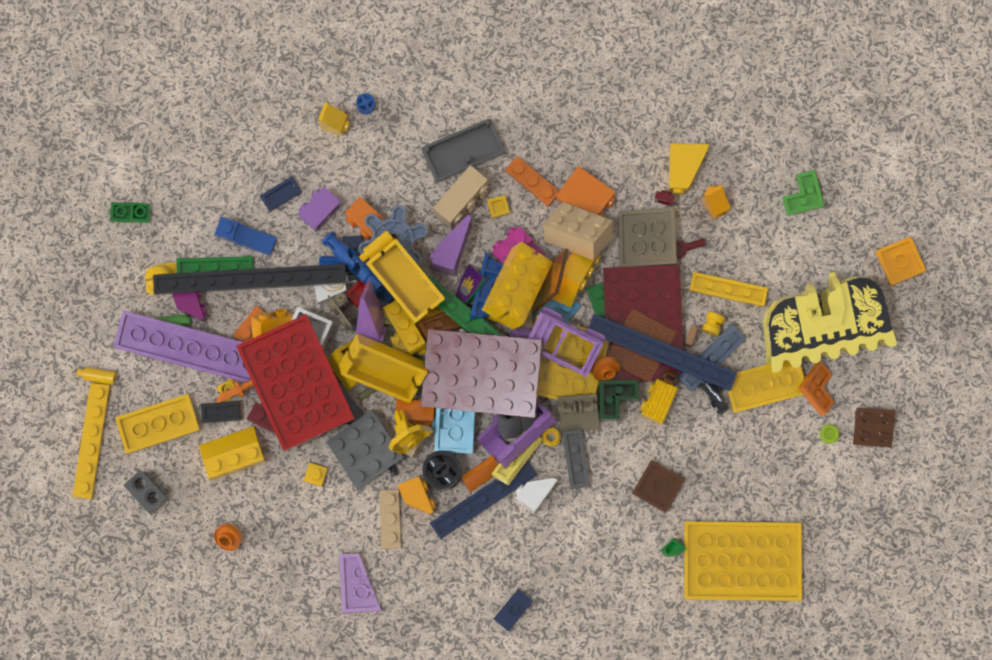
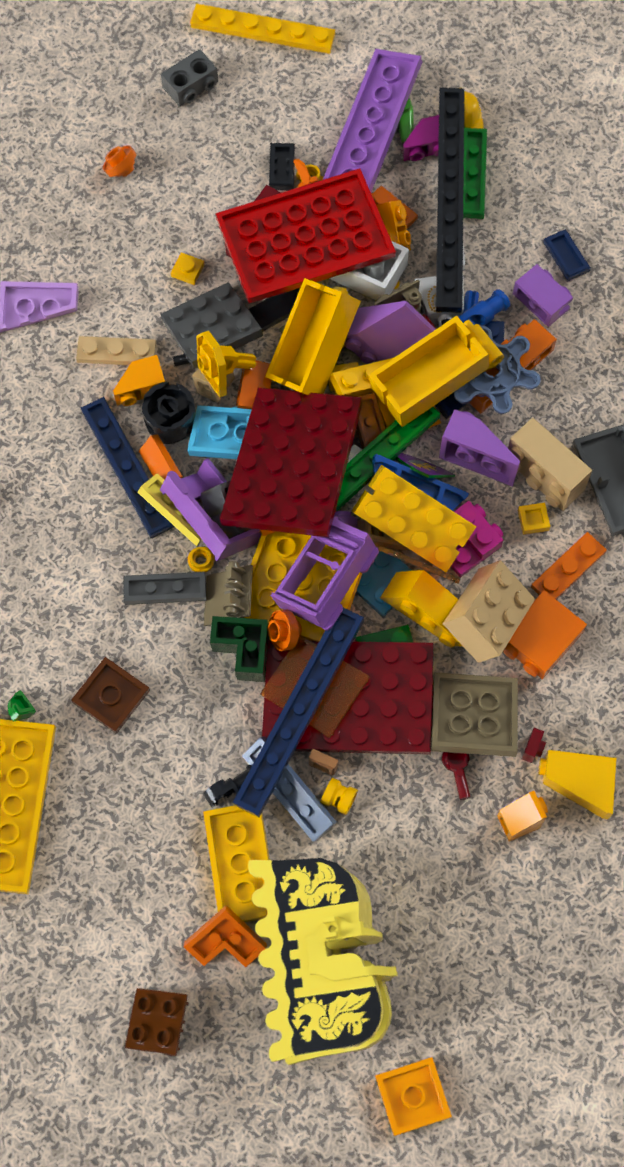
camera: 90 degrees right, 10 degrees down
(97, 375) = (343, 38): yellow cylinder -> none
(129, 213) = (551, 83): green slope -> none
(157, 424) = (275, 97): yellow plate -> none
(232, 453) = (225, 171): yellow slope -> none
(245, 236) = (511, 205): blue slope -> none
(534, 493) = (123, 529): white slope -> none
(658, 402) = (231, 707): yellow brick -> none
(668, 381) = (267, 725): reddish brown hinge -> none
(728, 289) = (389, 825): yellow plate -> none
(808, 198) = (521, 961): bright green plate -> none
(829, 434) = (156, 953): lime tile -> none

